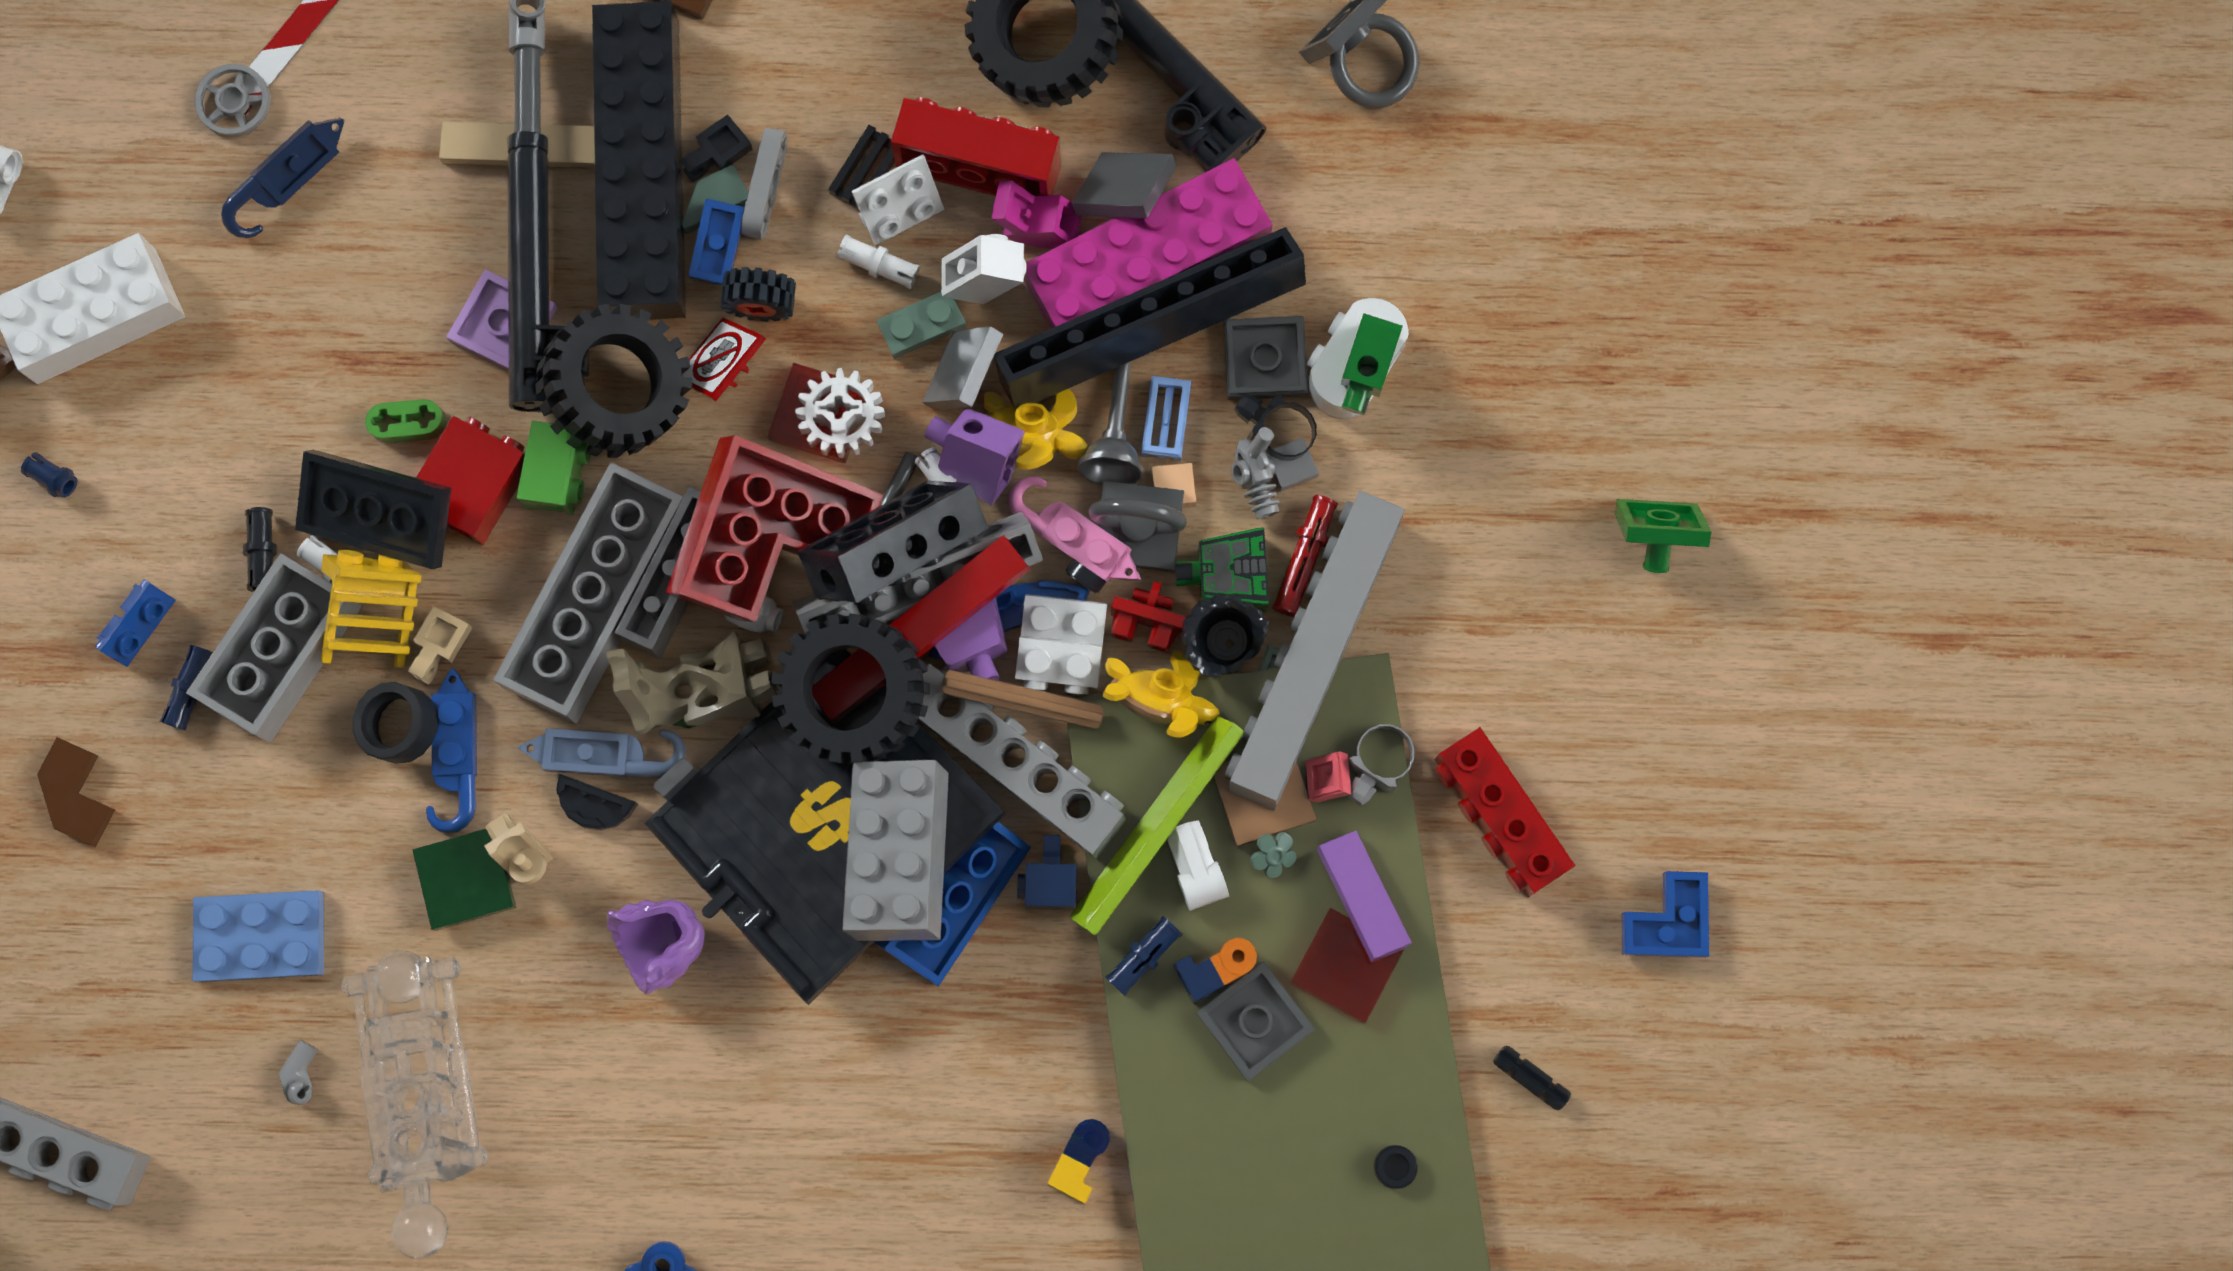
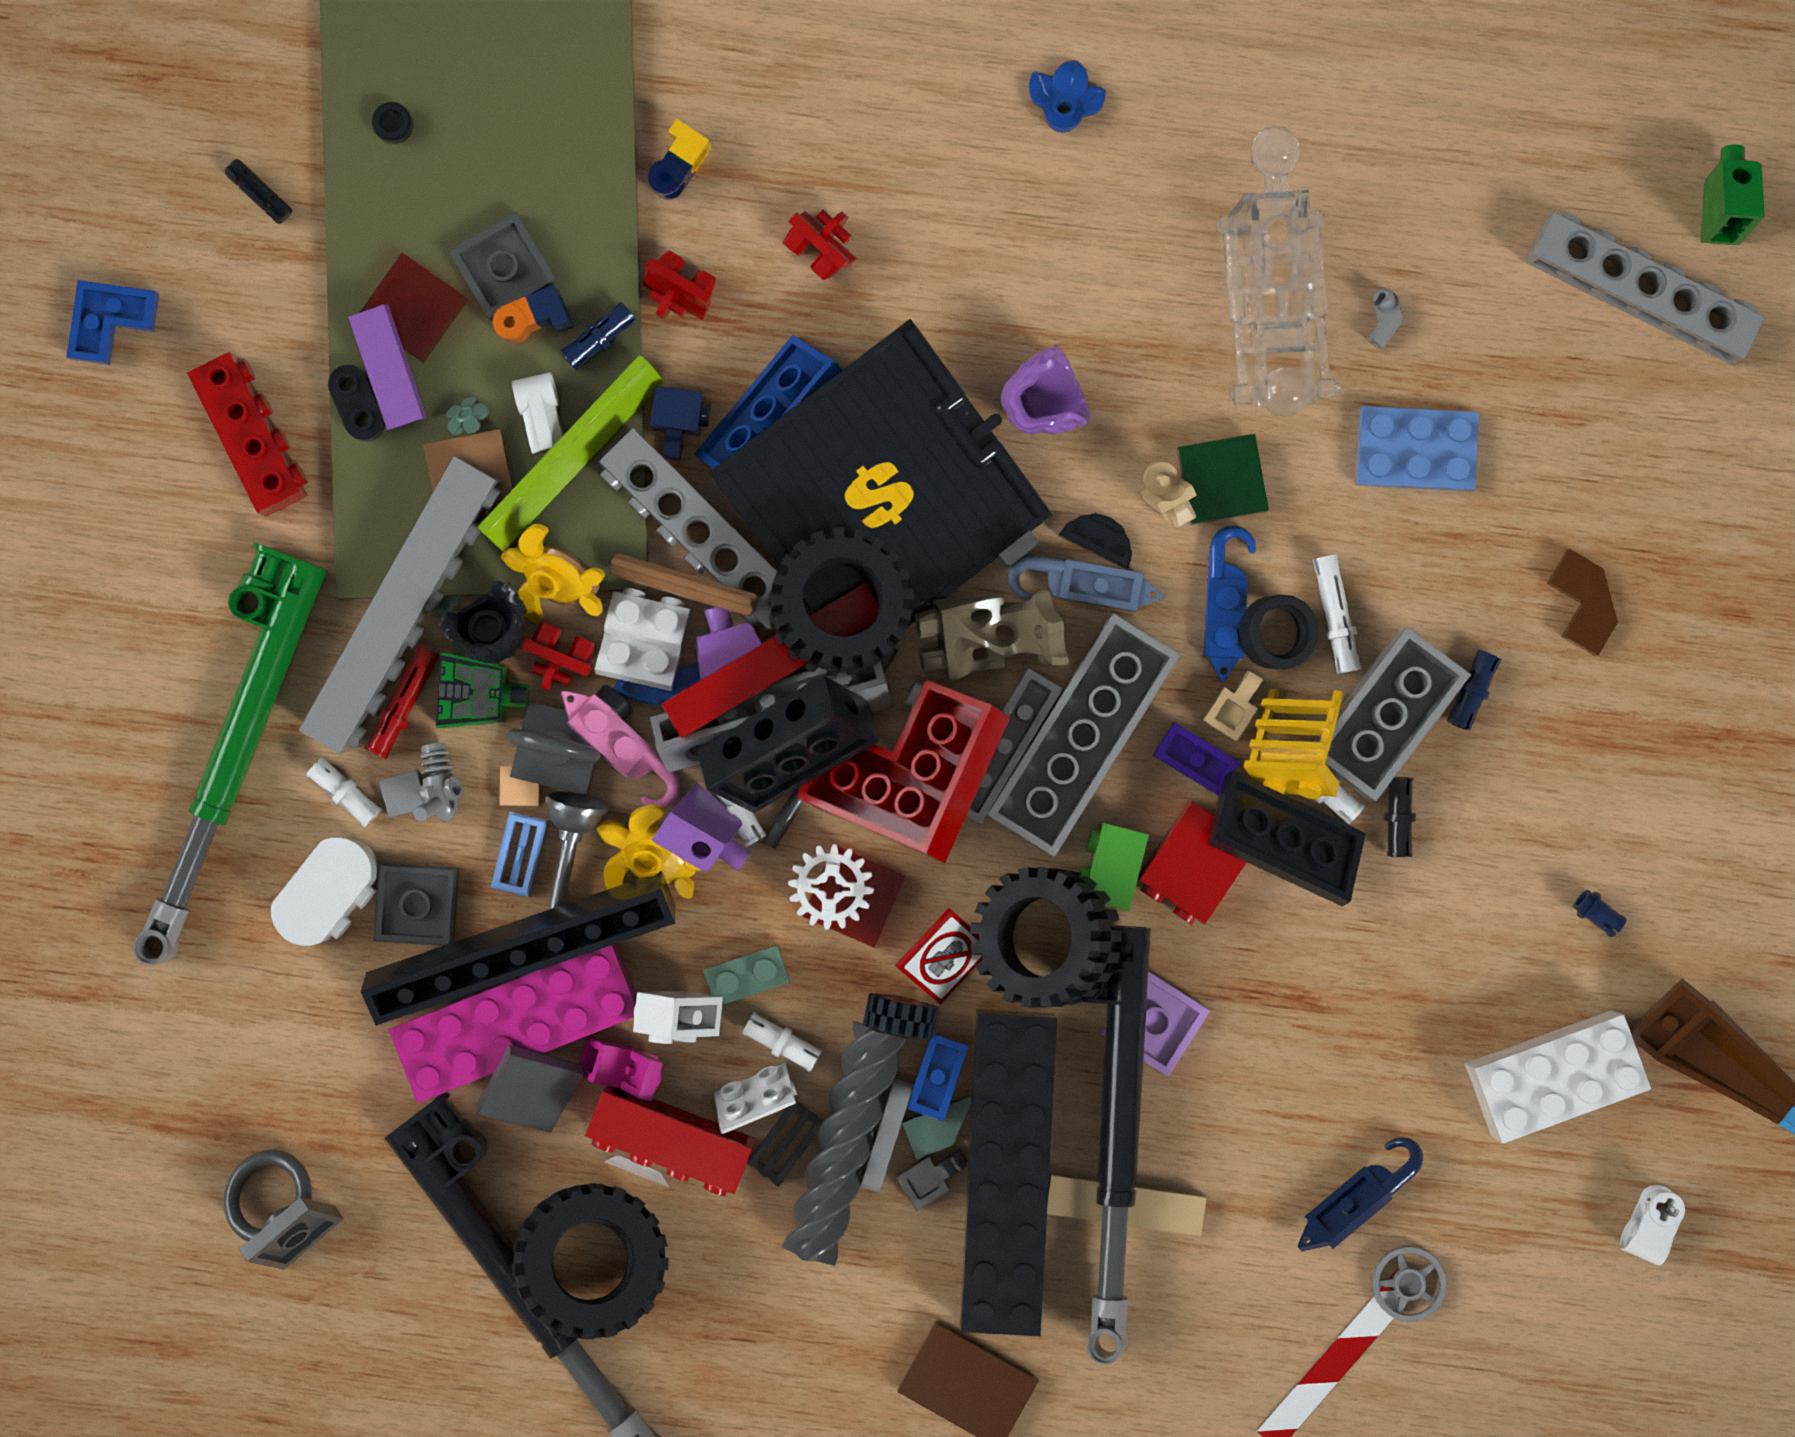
camera: 175 degrees left, 10 degrees up
(143, 612) = (1533, 745): blue hinge -> none
(332, 739) = (1337, 616): none -> white pin
(405, 412) = (1252, 940): bright green beam -> none
(475, 585) = (1195, 758): none -> dark purple plate
(804, 165) = (844, 1144): none -> dark grey piece
(896, 851) = (811, 443): light grey brick -> none
(910, 1092) = (807, 231): none -> red hips
(962, 368) = (708, 918): dark grey tile -> none
(1068, 1014) = (675, 291): none -> red hips
(1250, 409) = (433, 849): black piece -> none
(1328, 777) = (405, 481): coral tile -> none
(1353, 458) = (343, 792): none -> white pin
(1363, 788) = (374, 467): light grey piece -> none
(1372, 347) = (305, 888): green torso -> none
(1391, 857) = (356, 402): none -> black plate
(1439, 643) = (285, 600): none -> green piece
(1661, 526) = (55, 688): green tile -> none

